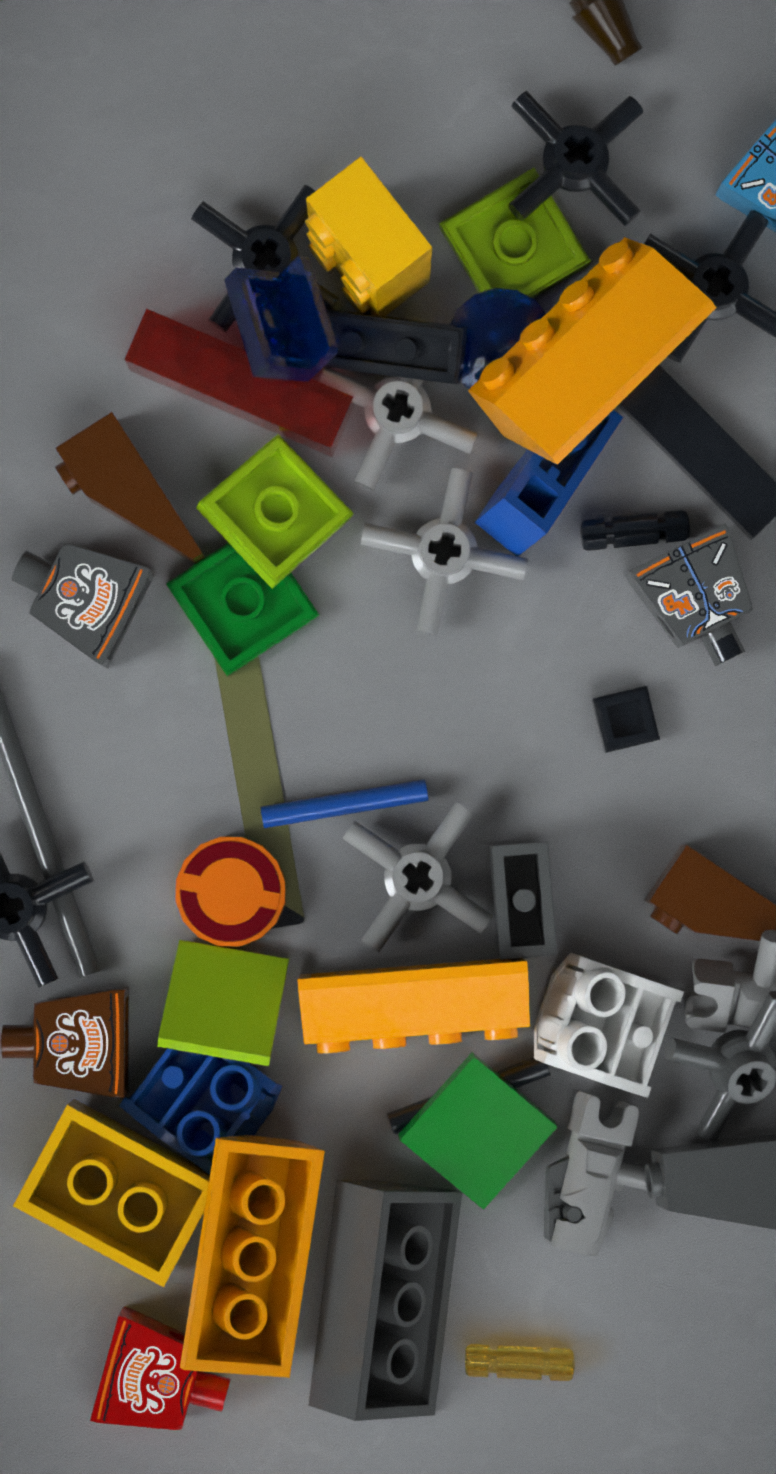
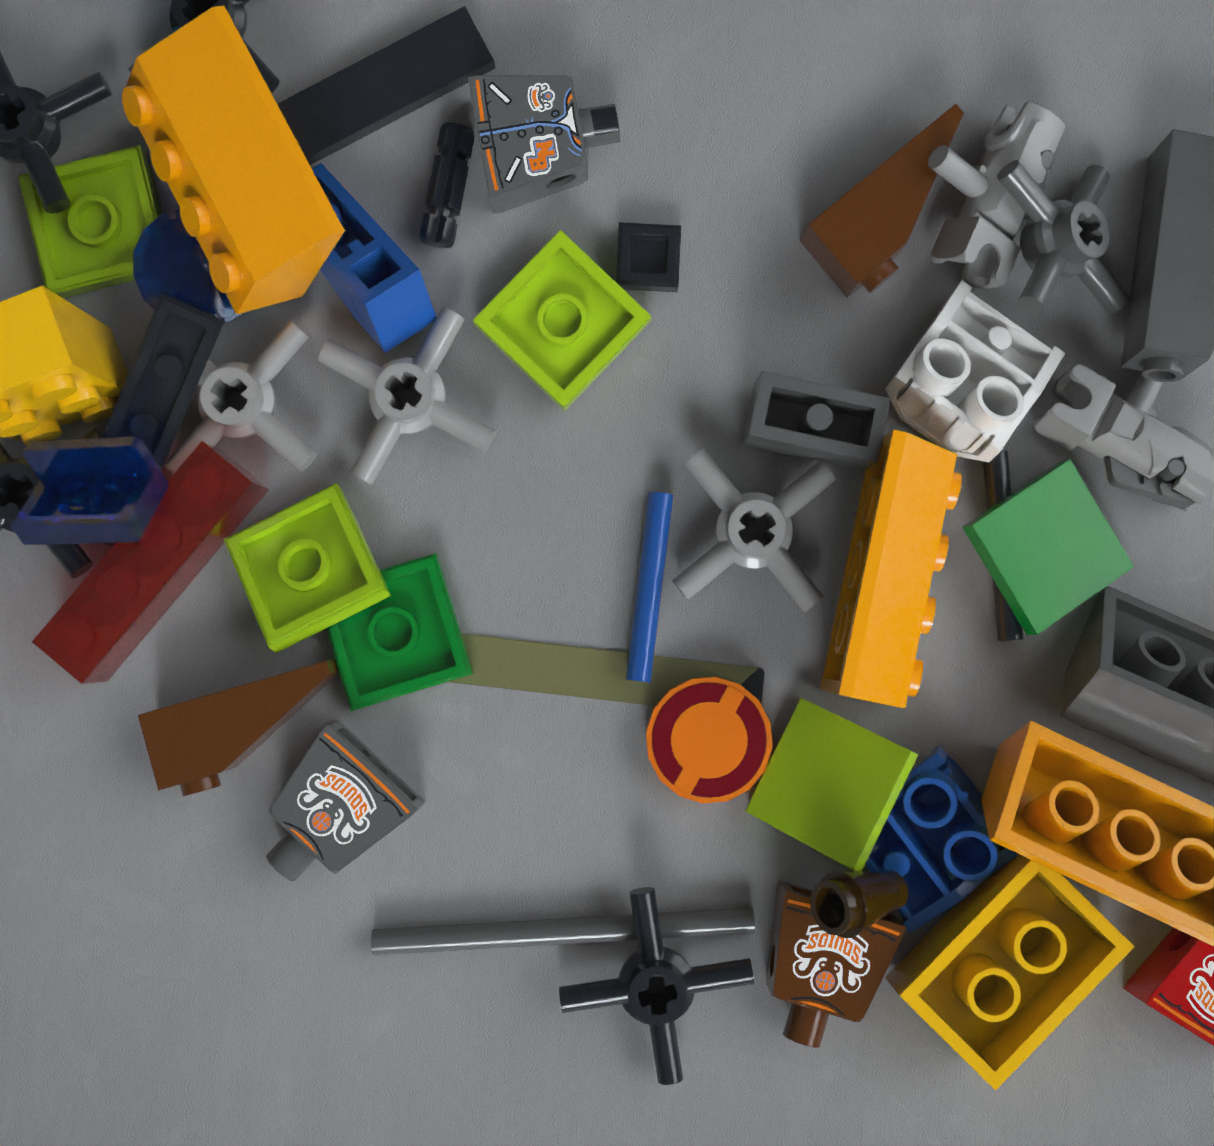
camera: 75 degrees left, 0 degrees up
(133, 1044) = (853, 900): none -> dark brown cone
(548, 662) = (562, 320): none -> lime plate

